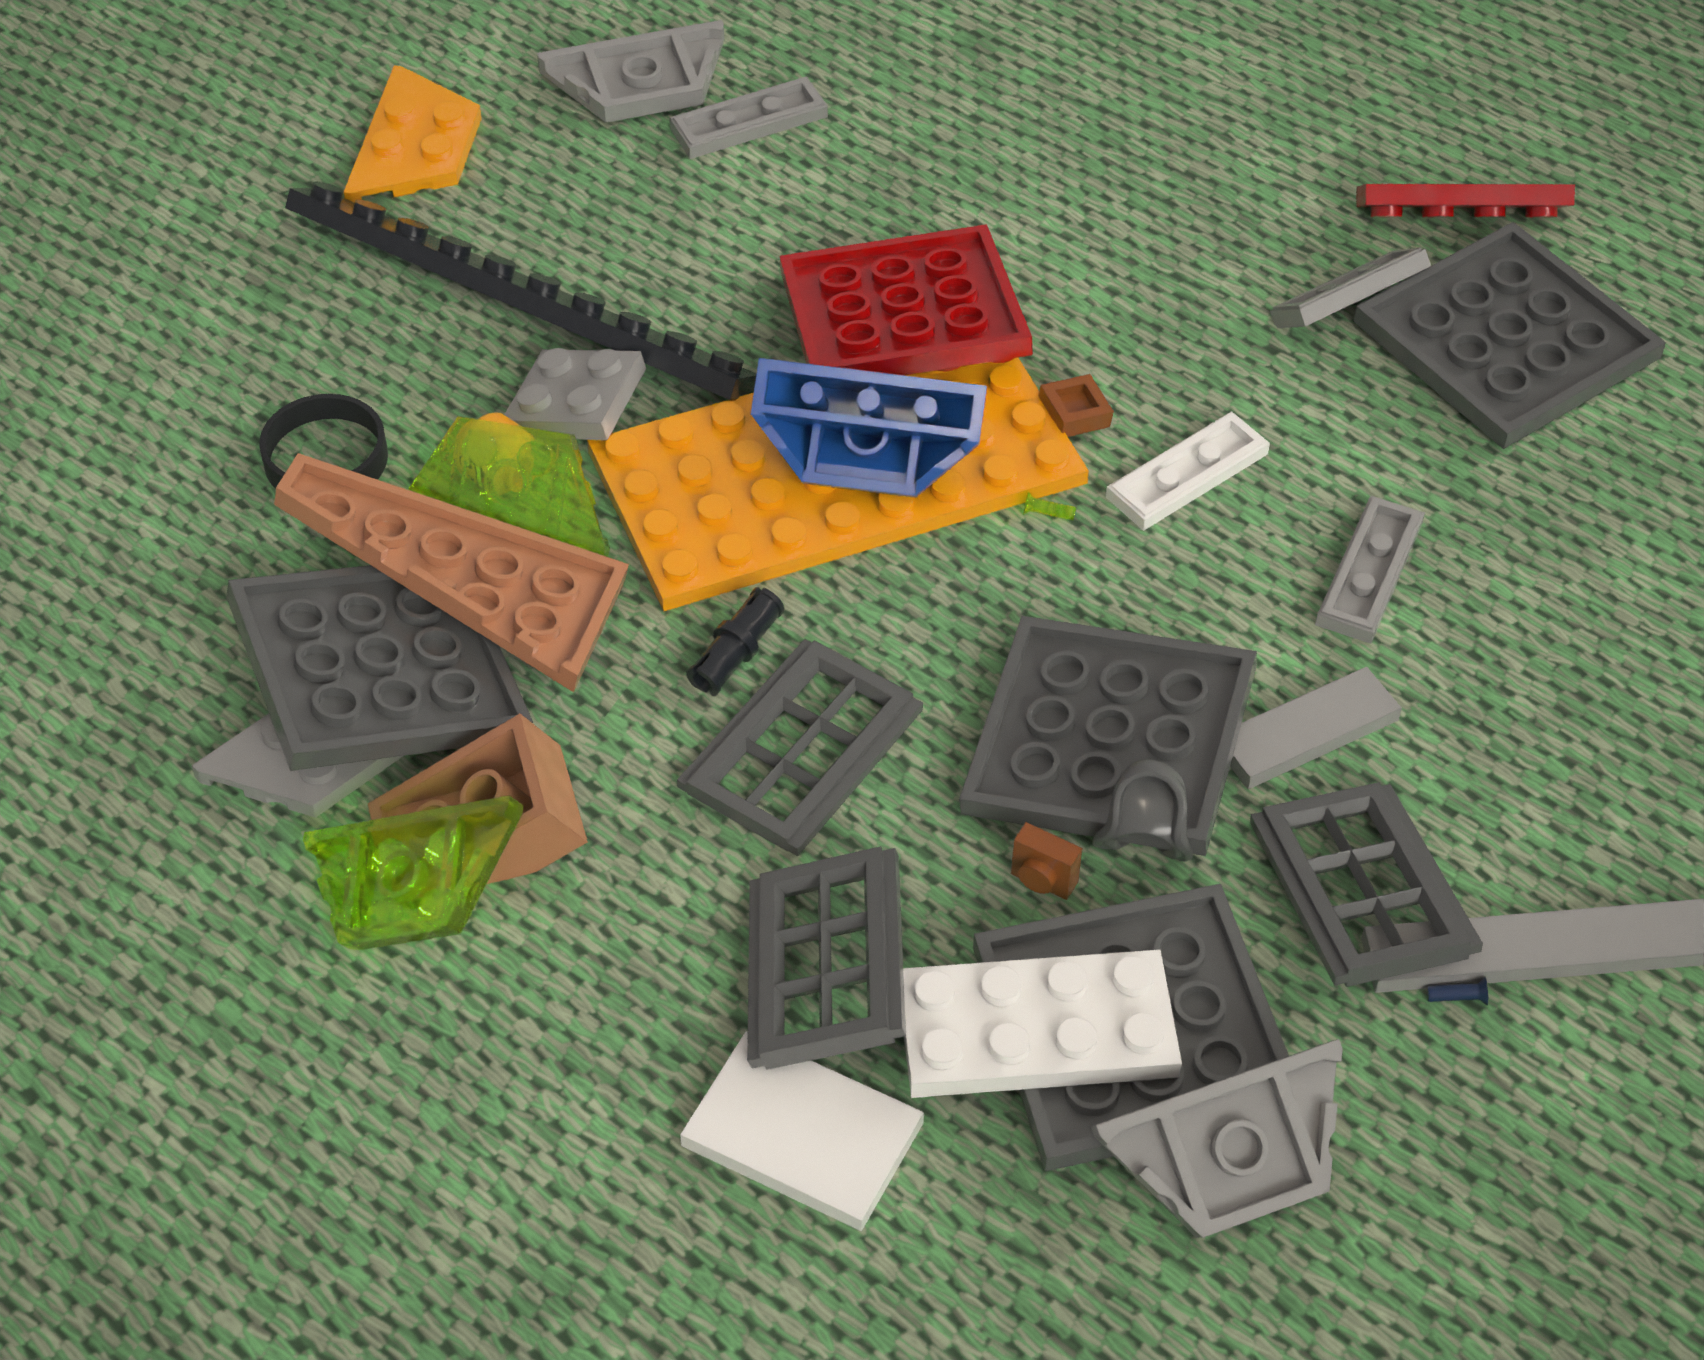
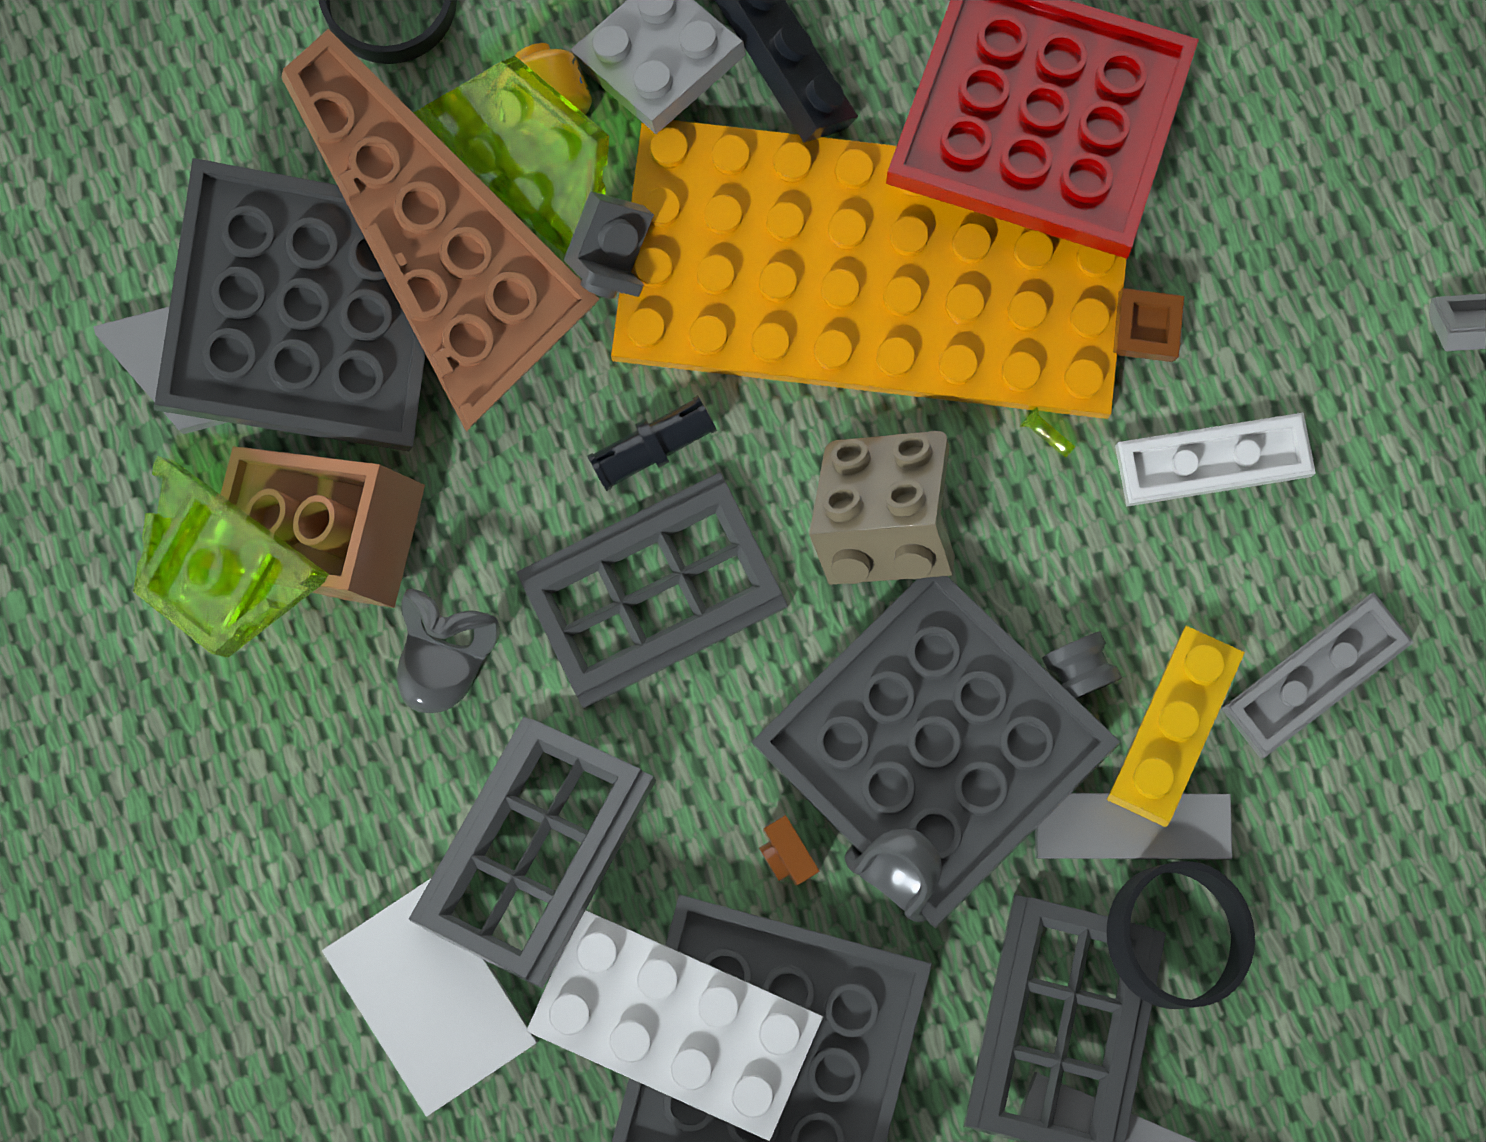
camera: 30 degrees right, 30 degrees up
(614, 517) = (608, 245): none -> dark grey bracket
(651, 886) = (435, 672): none -> dark grey piece
(866, 425) = (902, 270): blue wedge -> none
(961, 596) = (882, 509): none -> dark tan bracket
(1185, 623) = (1082, 665): none -> dark grey wheel
(1290, 642) = (1175, 726): none -> yellow plate
(1387, 803) = (1240, 925): none -> black tyre

